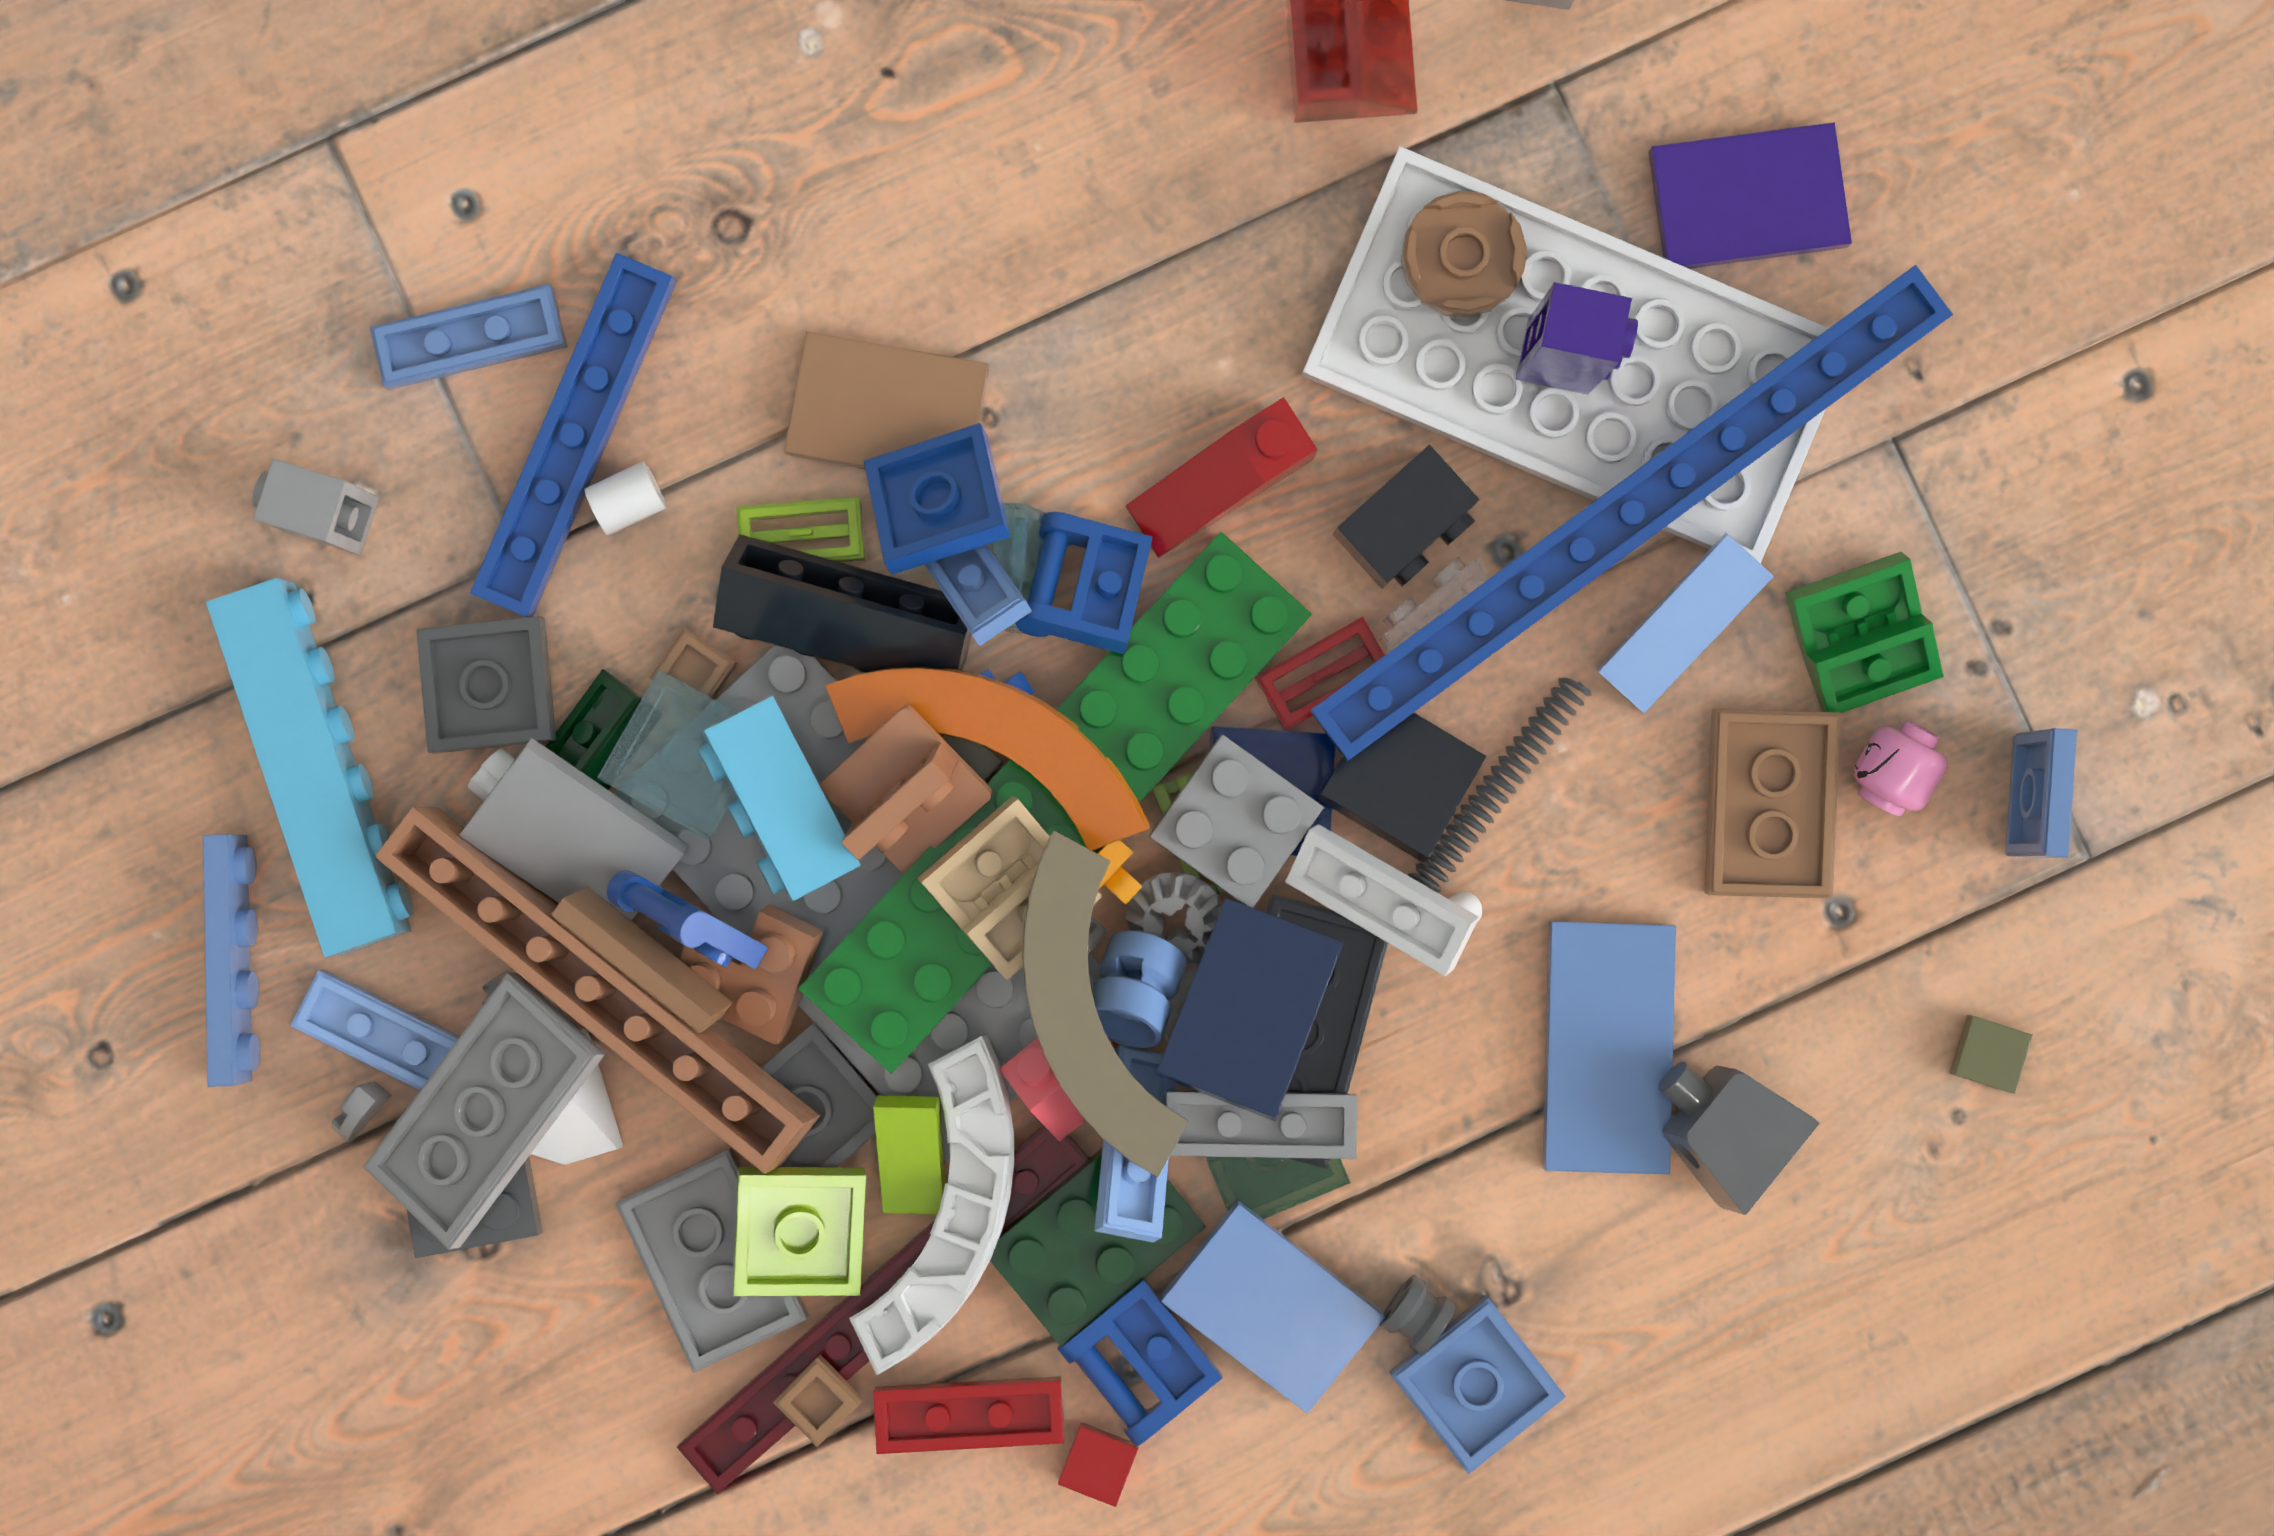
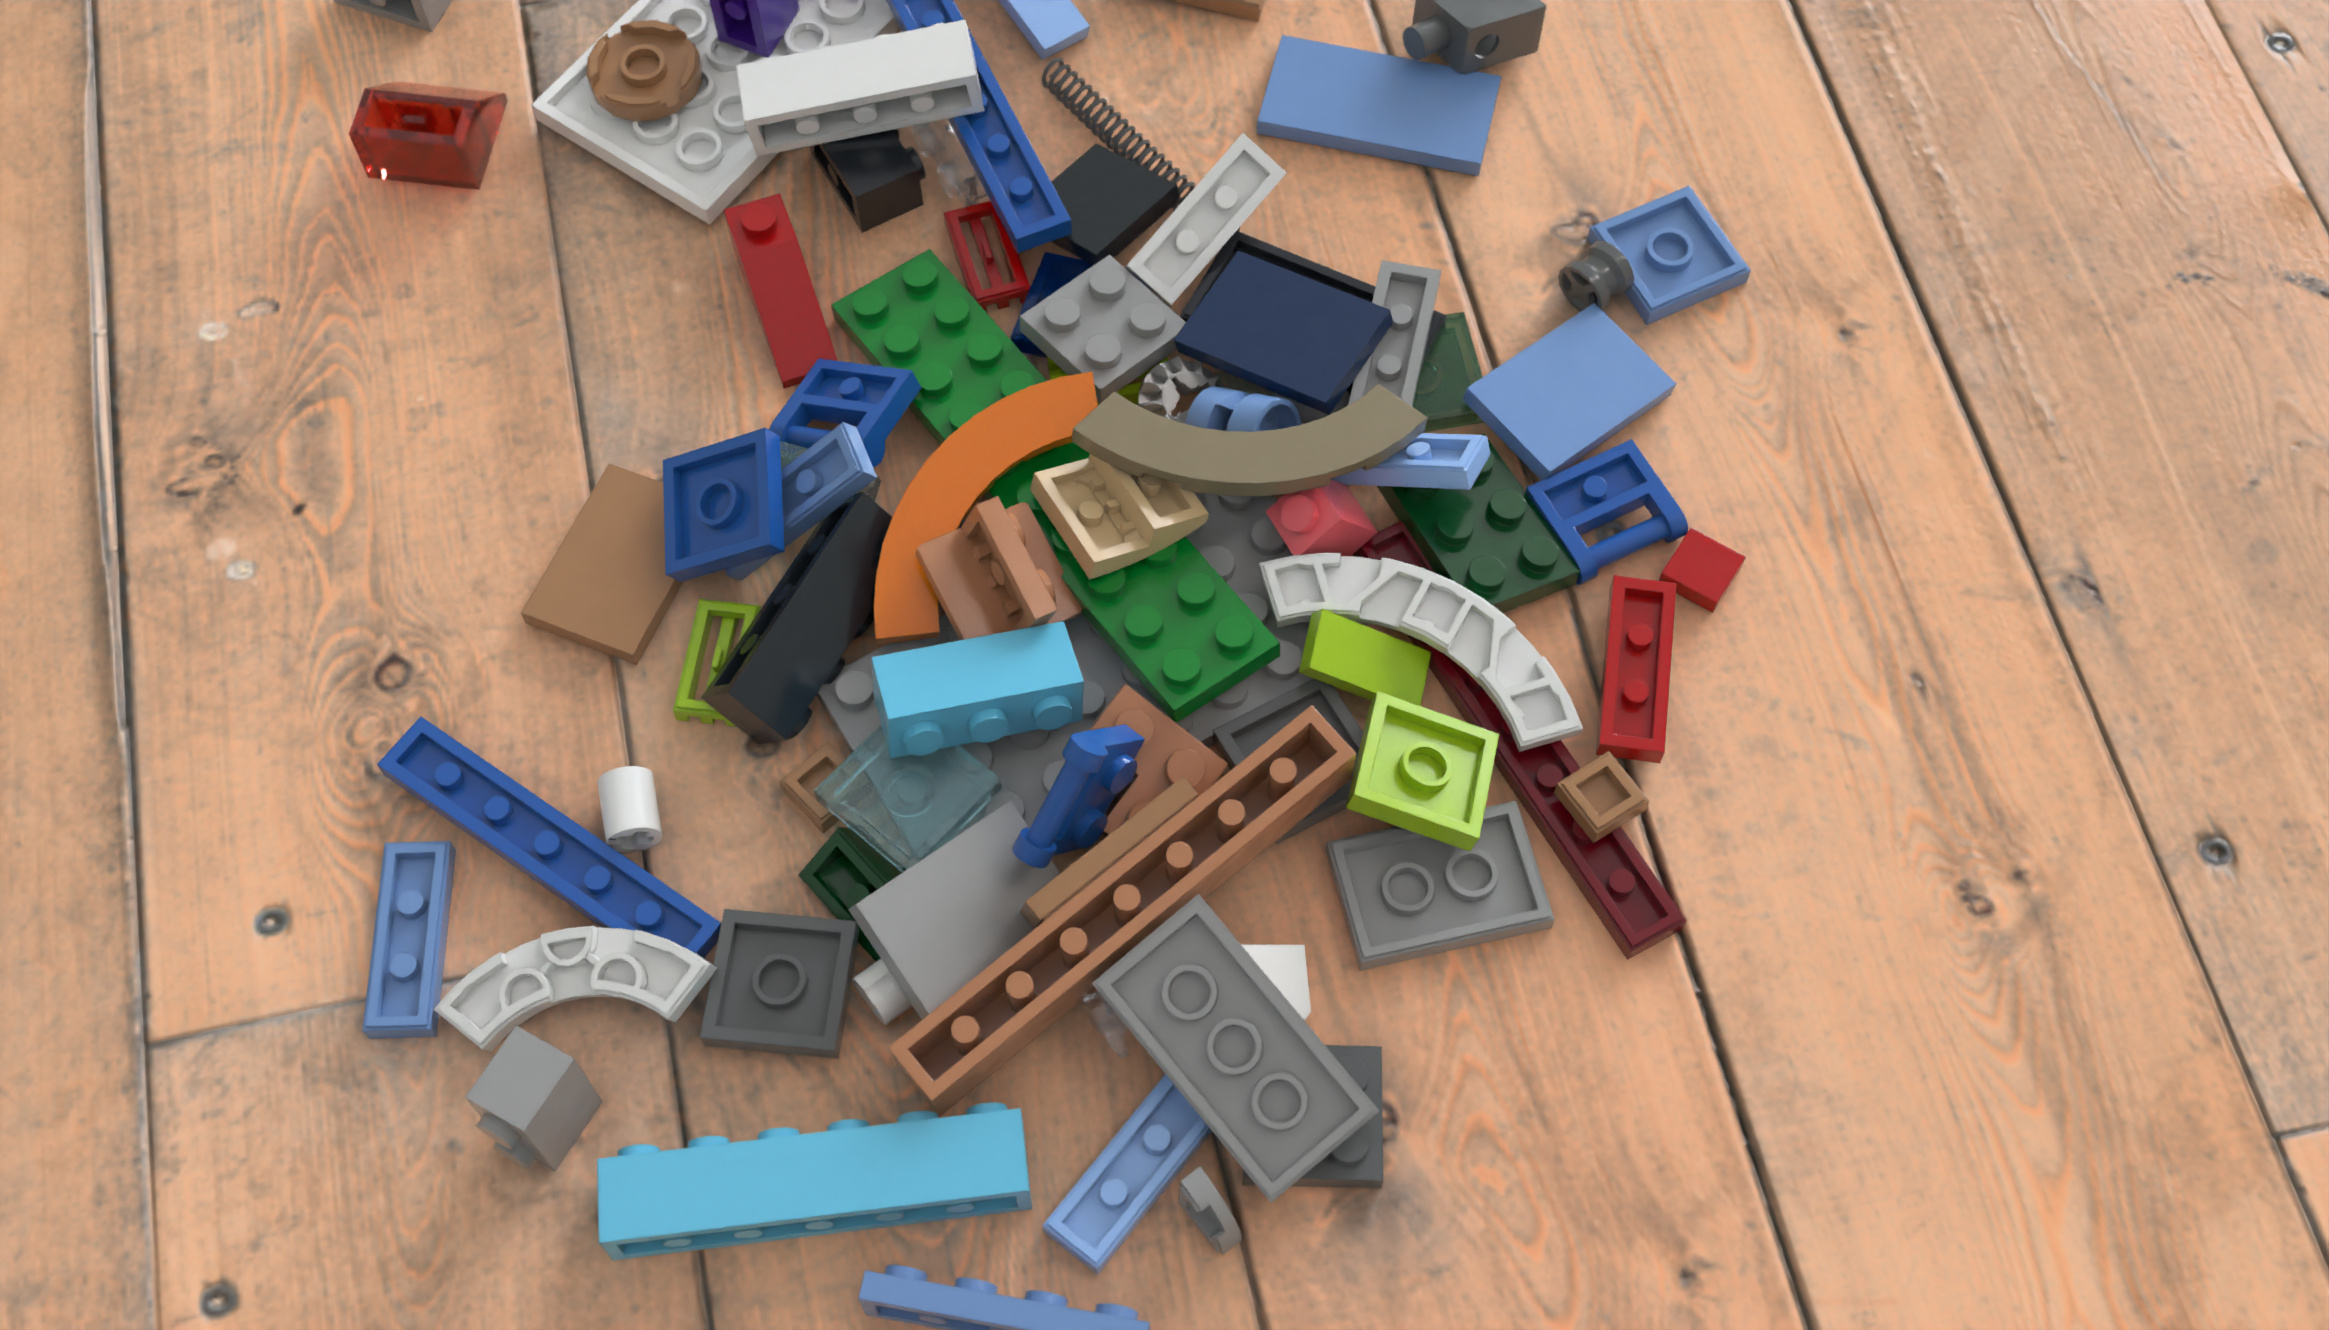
camera: 80 degrees left, 25 degrees down
(462, 498) = (572, 967): none -> white tile
(1457, 501) = (859, 88): none -> white brick

